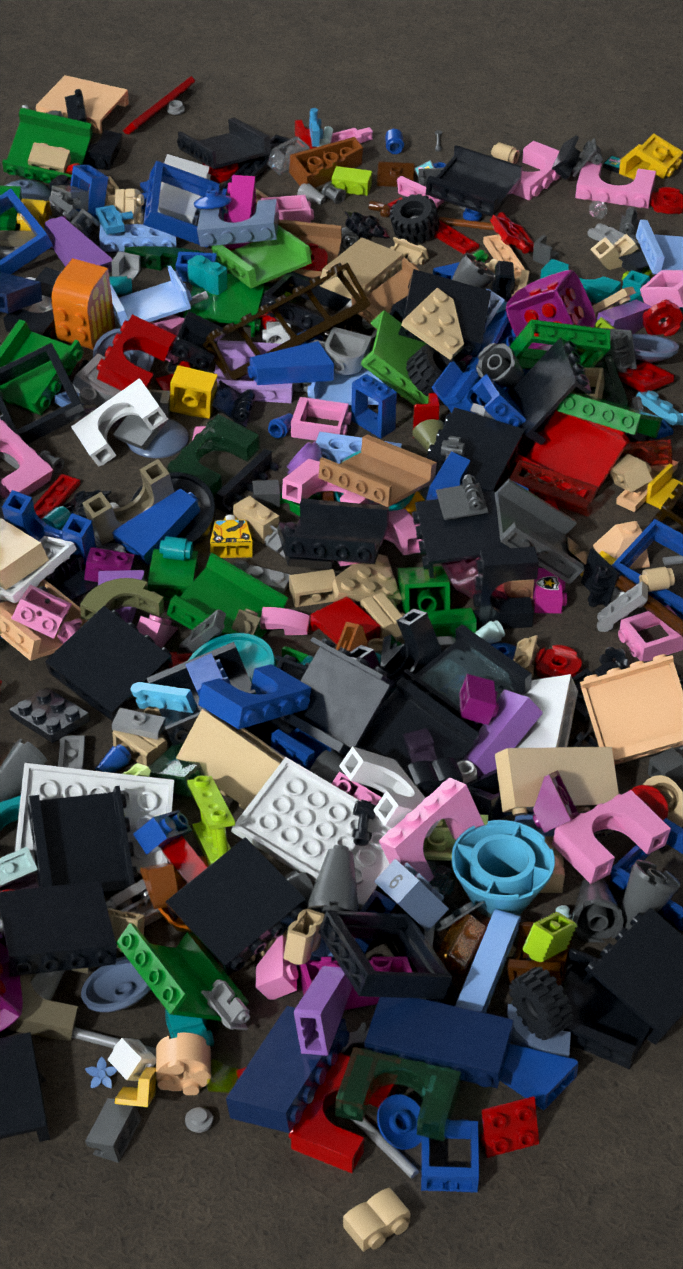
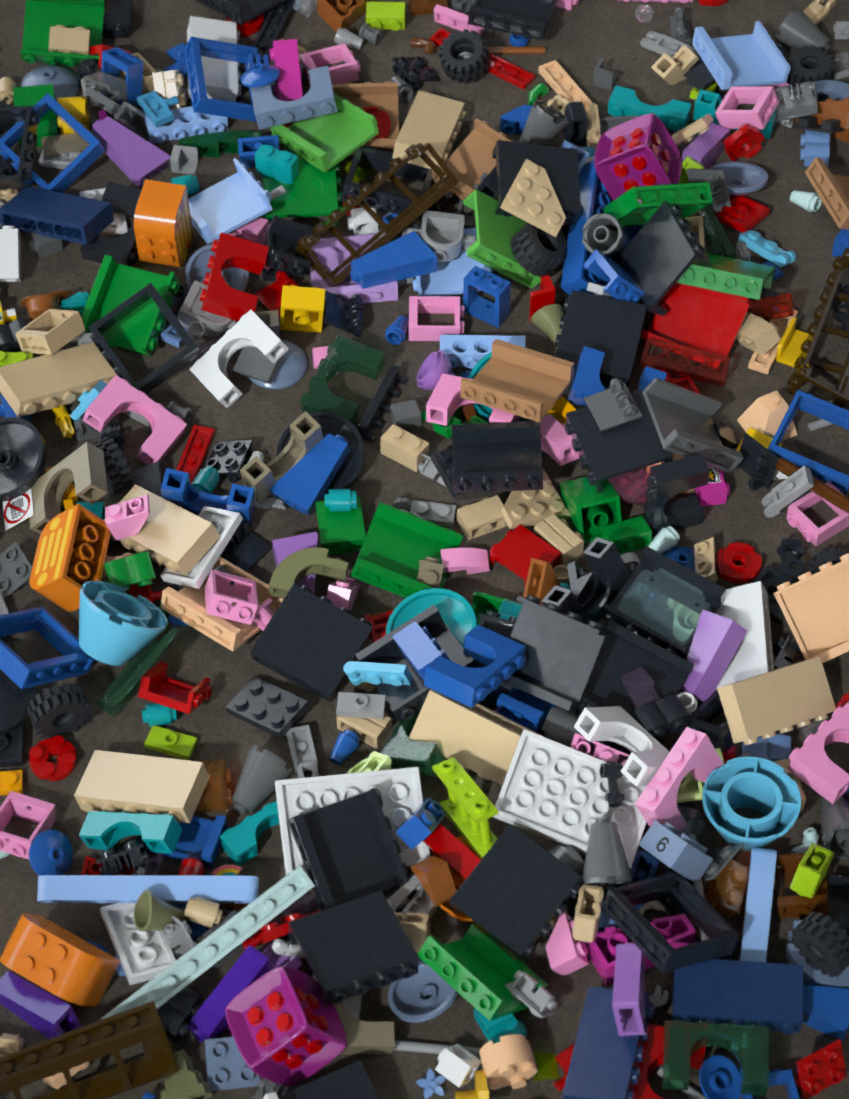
camera: 10 degrees left, 10 degrees up
(106, 560) = (274, 525): magenta brick -> none
(204, 632) = (394, 592): dark grey hinge -> none
(231, 538) = (386, 473): yellow torso -> none
(416, 253) = (475, 97): tan hinge -> none
(453, 384) = (564, 263): blue panel -> none
(453, 445) = (582, 339): dark grey gear -> none
(478, 699) = (682, 626): magenta brick -> none
(512, 233) = (567, 58): red plate -> none
(553, 804) = (784, 731): magenta slope -> none
(658, 578) = (817, 458): tan brick -> none

